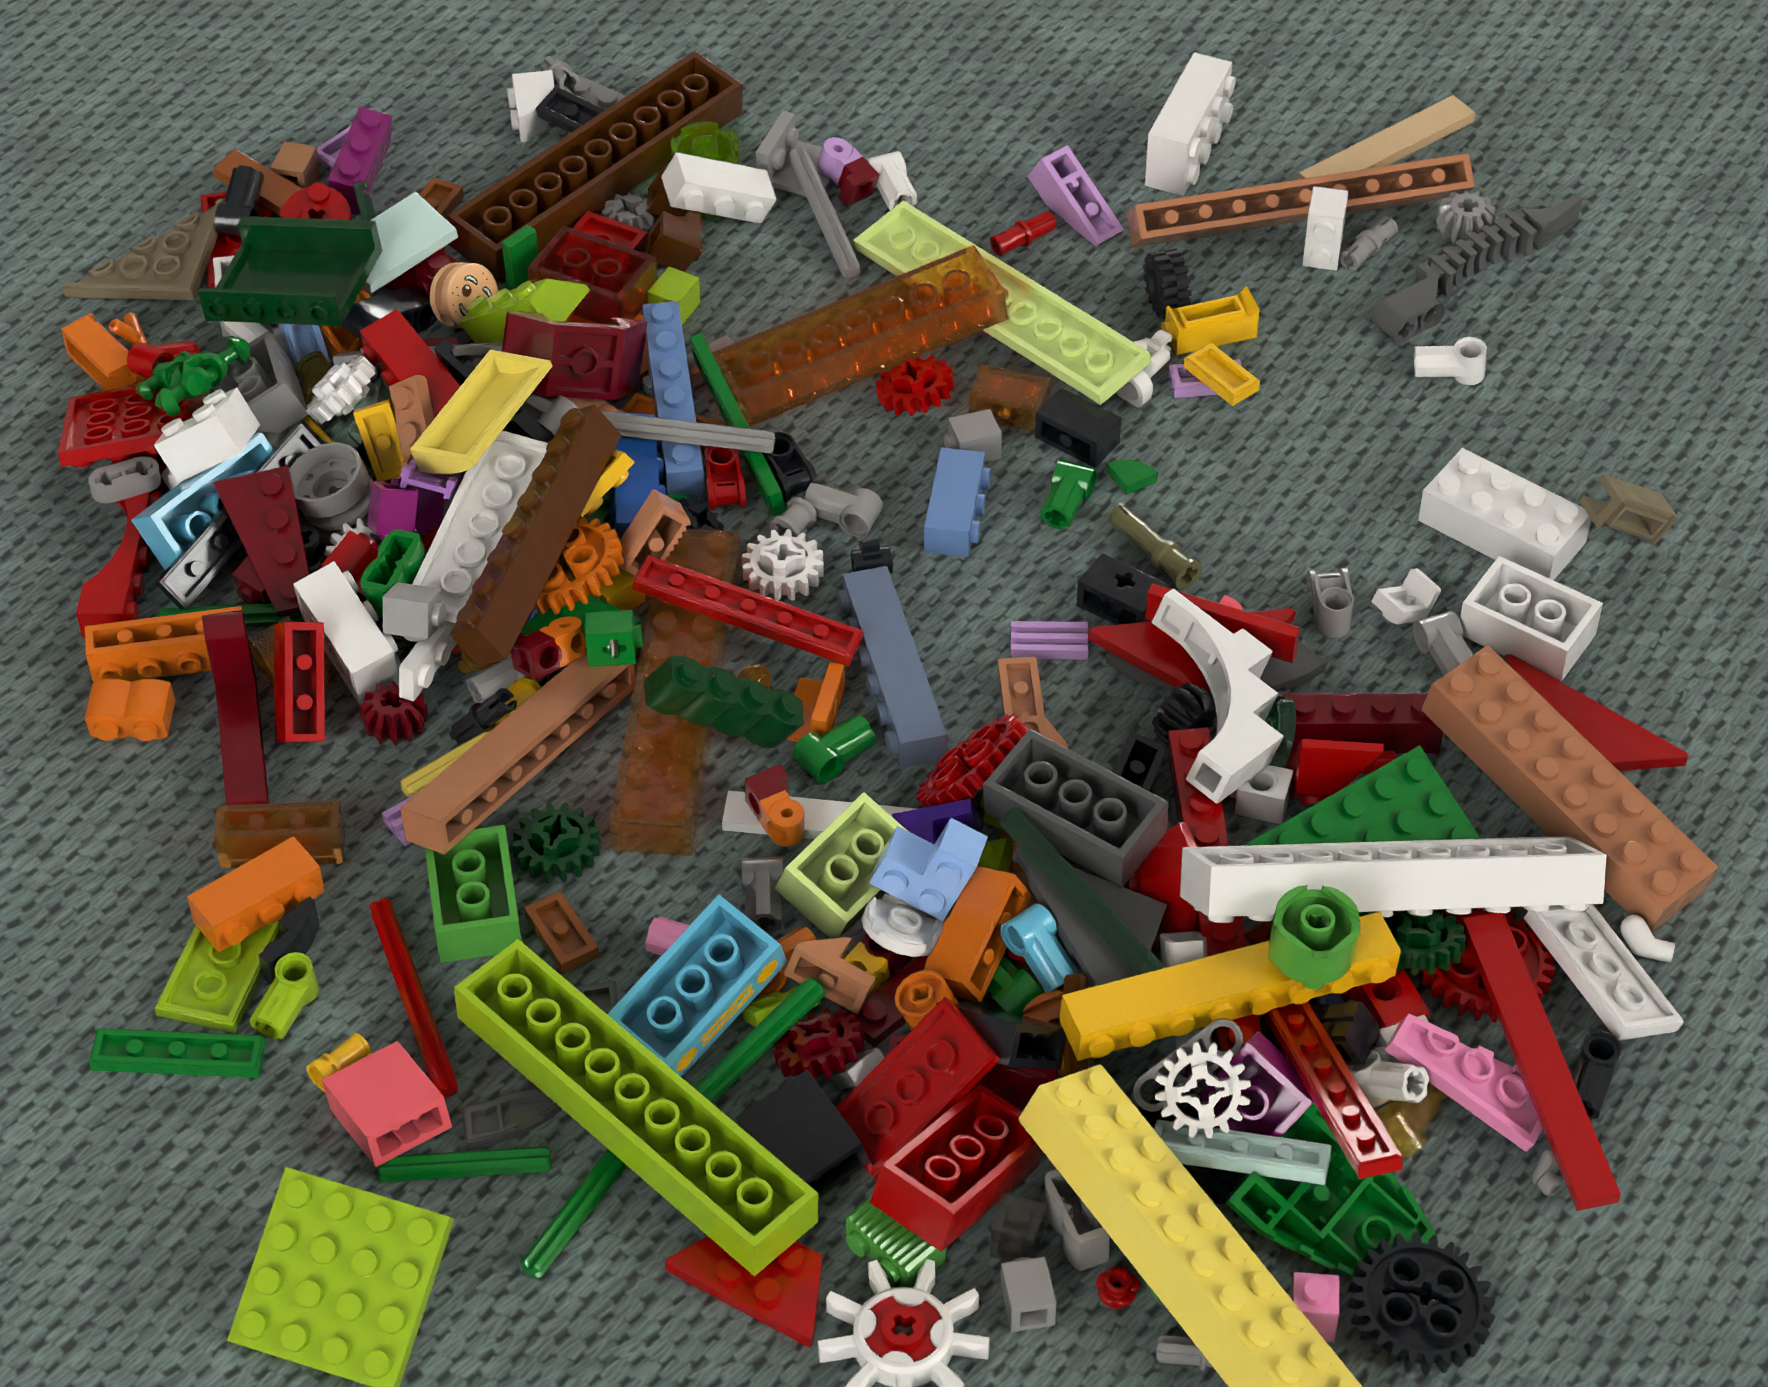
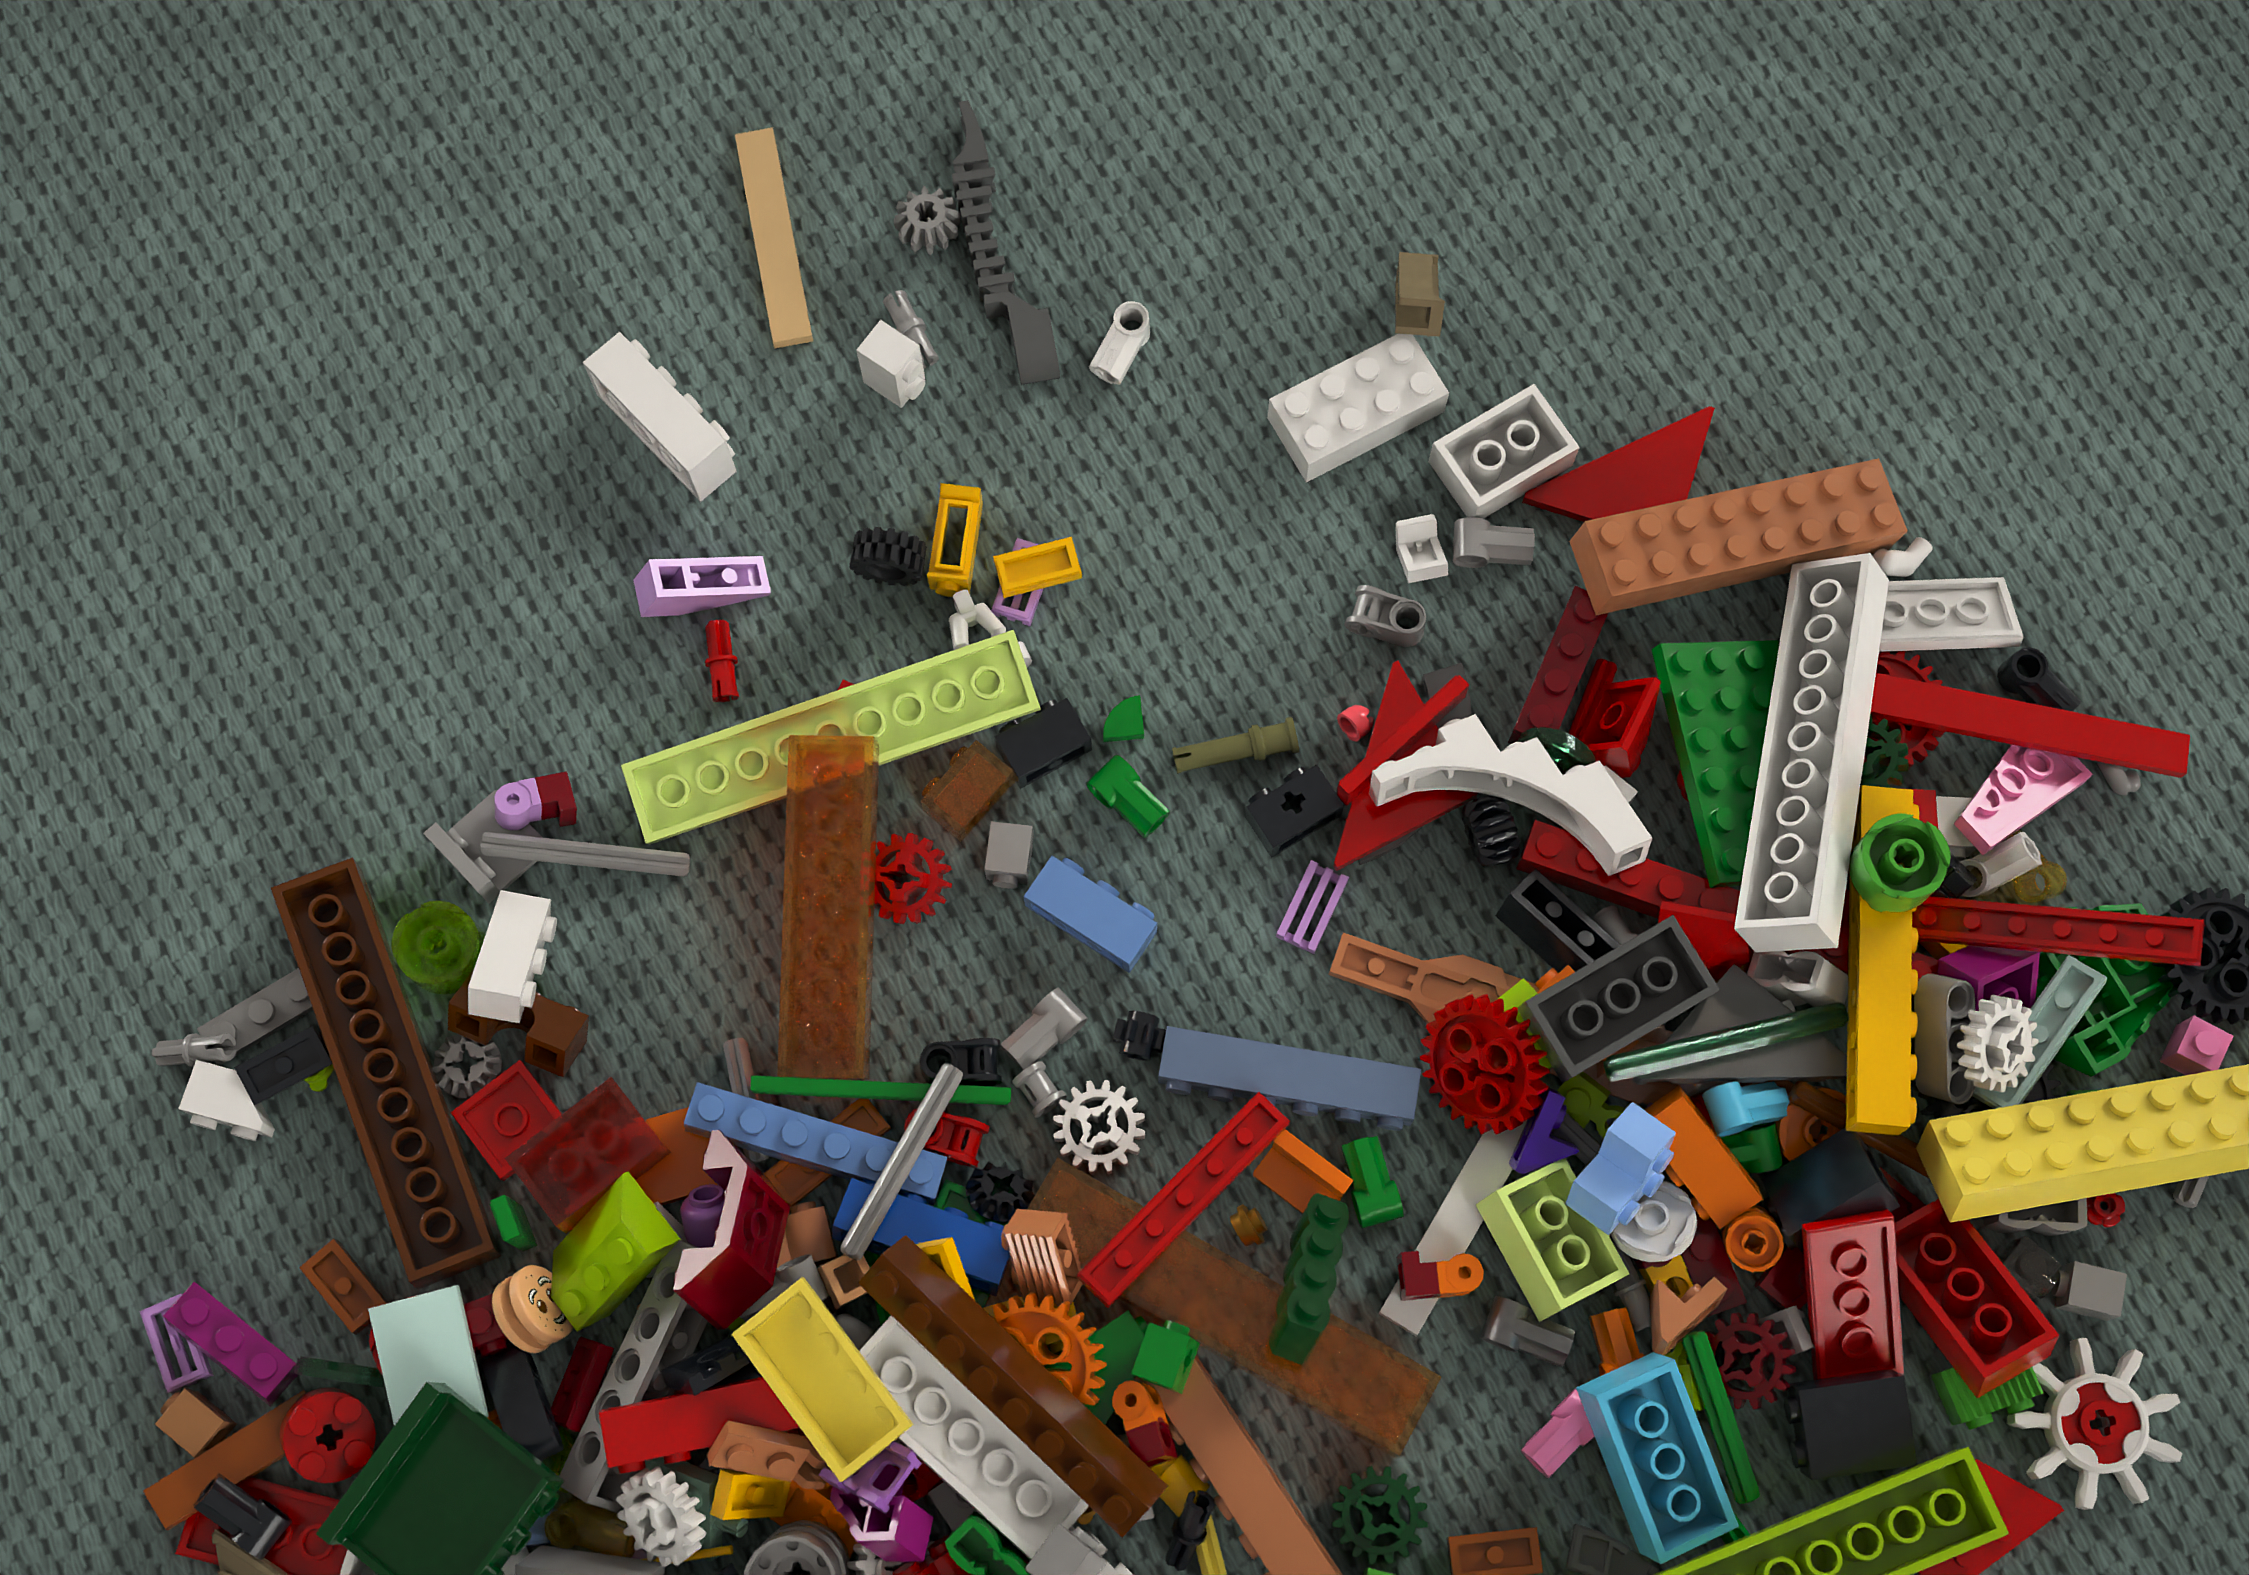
camera: 65 degrees left, 25 degrees up
(676, 286) = (640, 1075): lime brick -> none
(893, 179) = (581, 760): white piece -> none
(1291, 200) = (829, 368): nougat brick -> none

